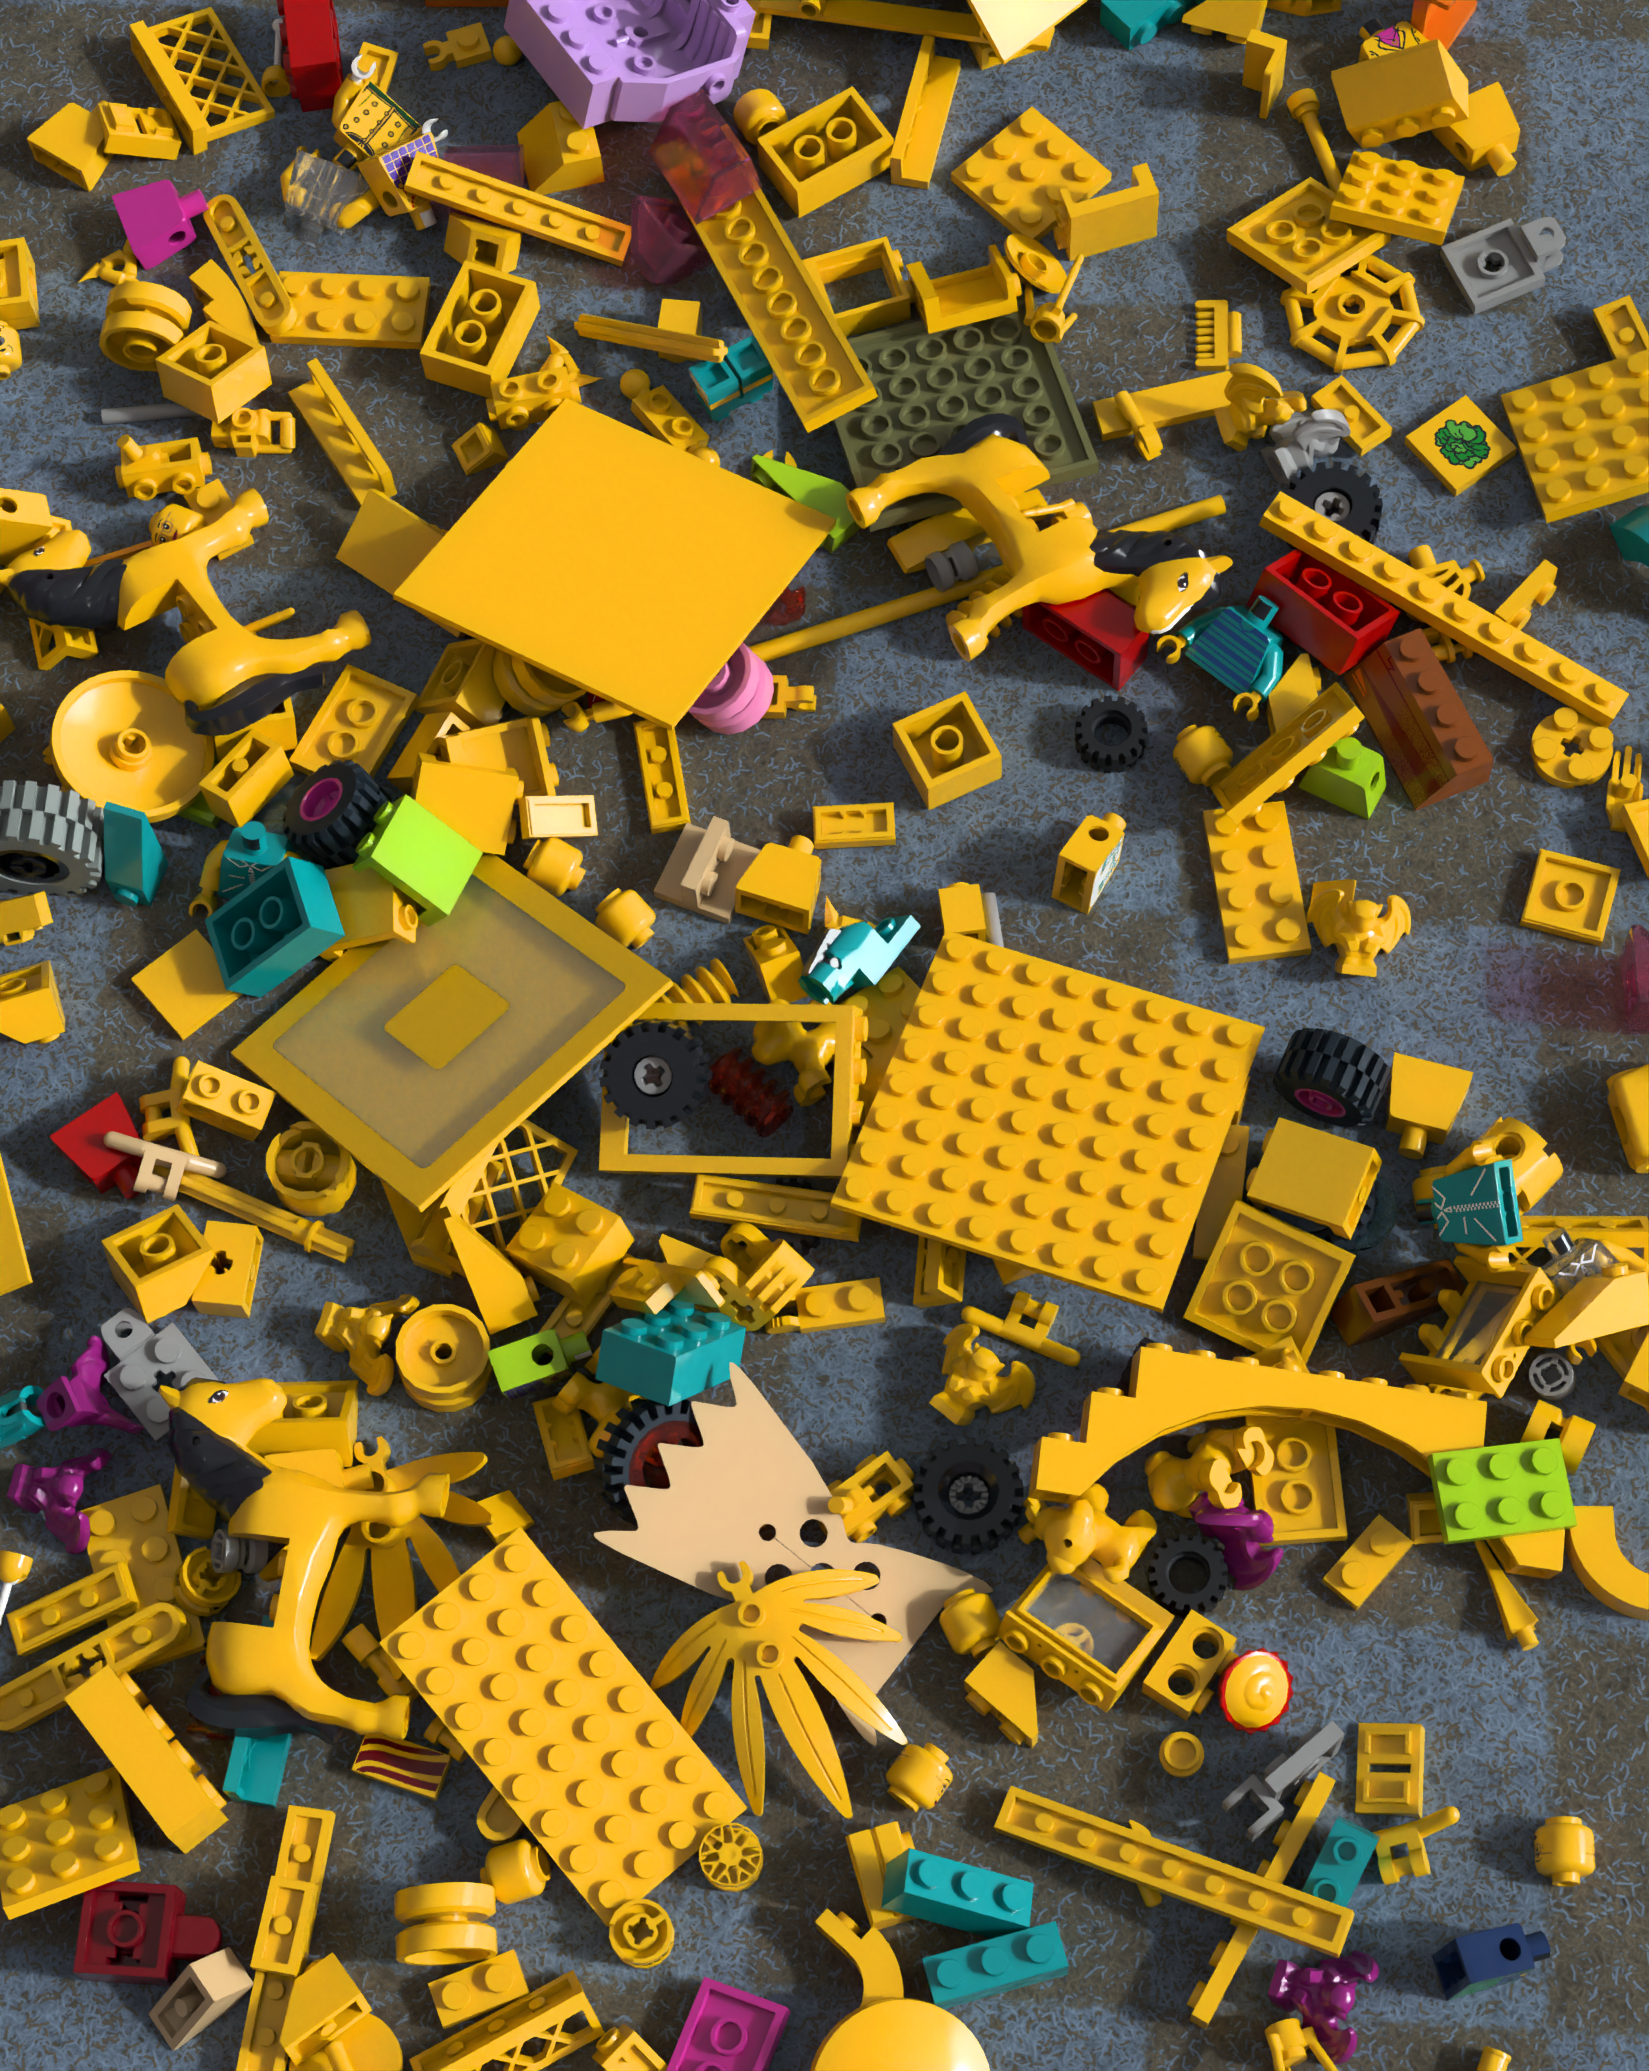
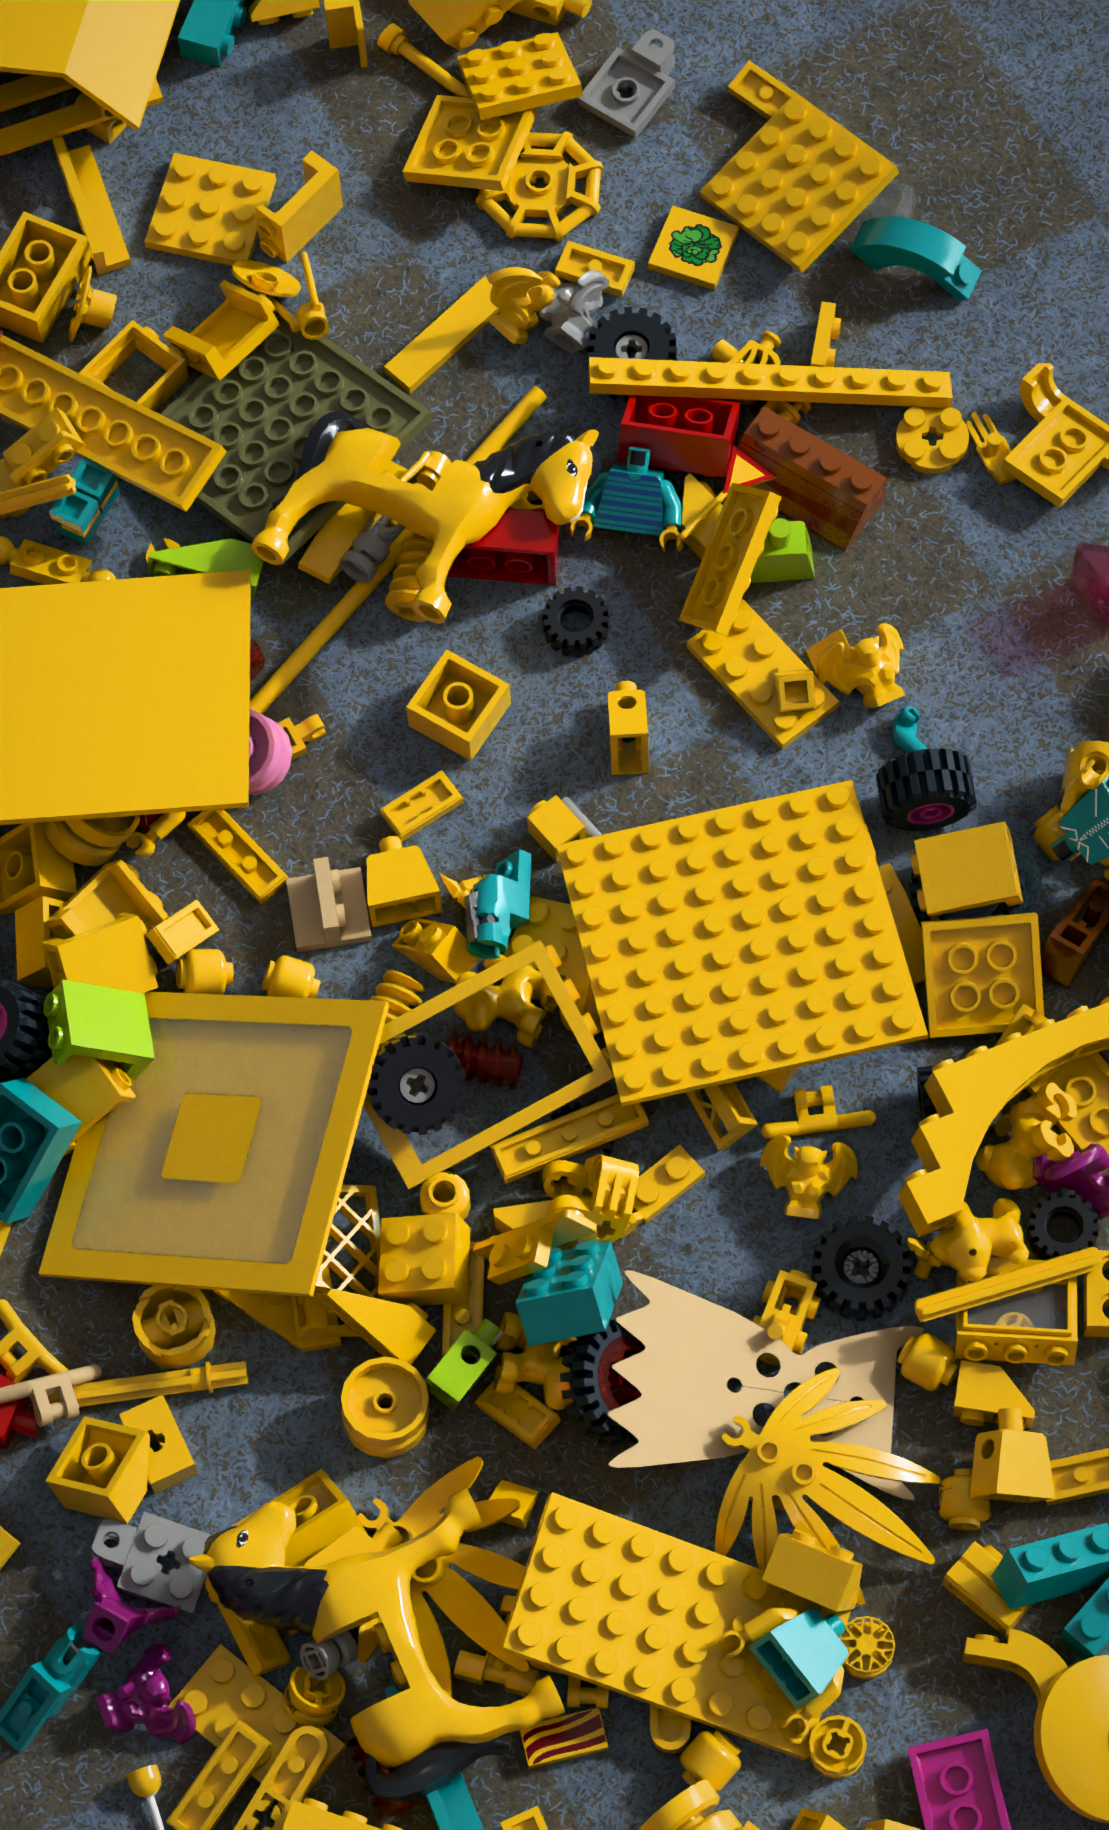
camera: 35 degrees left, 0 degrees up
(225, 1101) = (67, 1312): yellow brick -> none
(363, 1335) = (307, 1429): yellow animal -> none
(628, 1196) = (445, 1194): none -> yellow head
(652, 1825) = (800, 1655): none -> torso
(717, 1755) = (814, 1572): none -> yellow slope
(722, 308) = (42, 449): none -> yellow bracket
(862, 210) = (94, 308): none -> yellow wheel
(980, 1768) = (1011, 1463): none -> yellow torso
(1088, 1595) = (1007, 1284): none -> yellow axle
(1146, 436) = (448, 373): yellow bar -> none
(1202, 754) = (658, 598): yellow head -> none
(1222, 340) = (453, 257): yellow piece -> none
(1272, 913) = (795, 690): none -> yellow slope
(1357, 680) = (742, 471): none -> yellow piece
(1357, 1012) = (905, 730): none -> teal arm
(1423, 1102) = (1002, 770): yellow torso -> none
(1570, 897) = (1005, 553): yellow tile -> none

